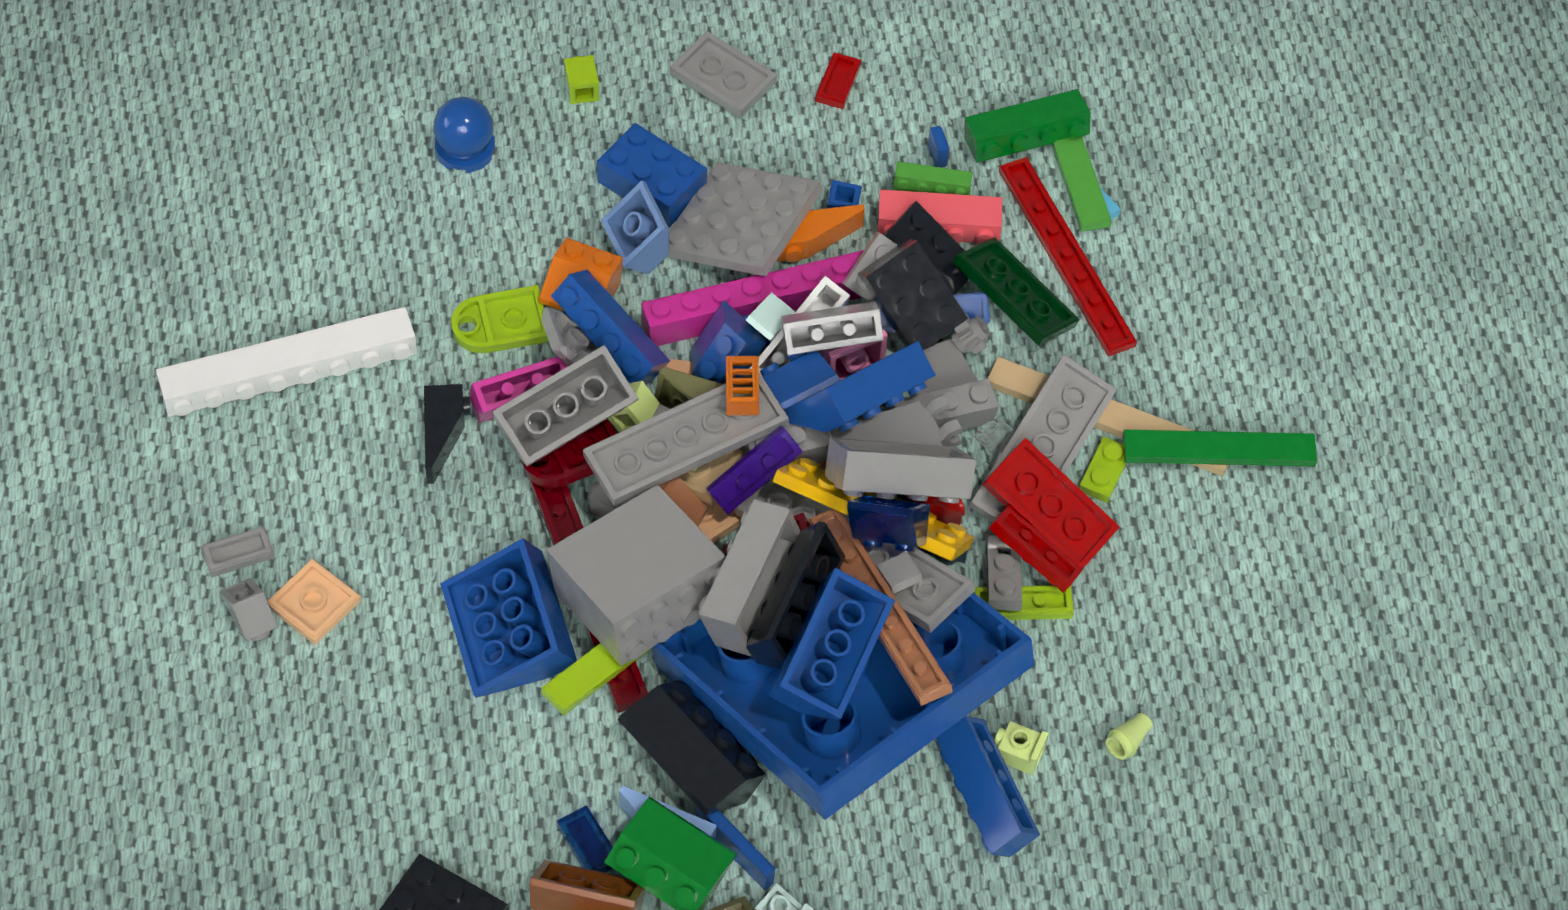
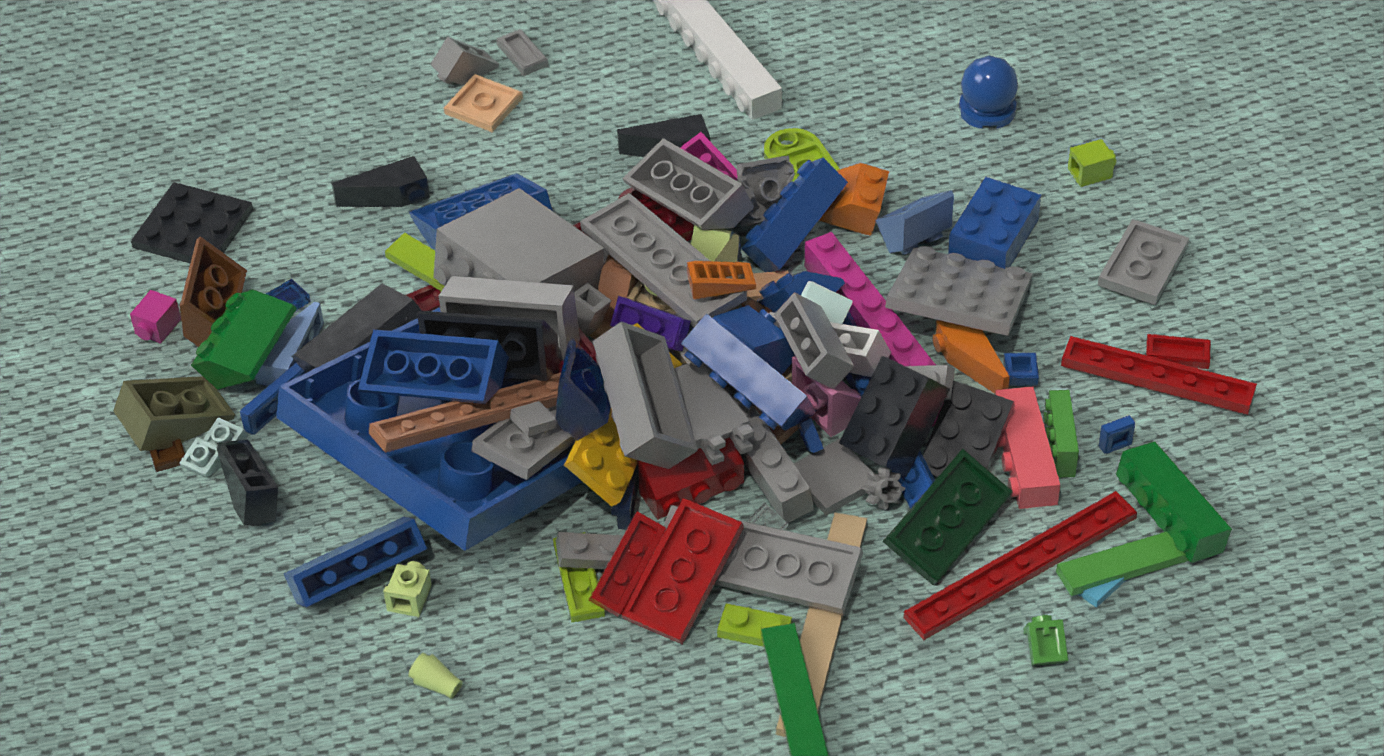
camera: 85 degrees right, 10 degrees down
(437, 702) = (385, 186): none -> black slope
(713, 523) = (590, 308): none -> light grey brick
(858, 880) = (248, 482): none -> black slope
(868, 101) = (1159, 375): none -> red plate
(1158, 252) = (1046, 640): none -> bright green bracket

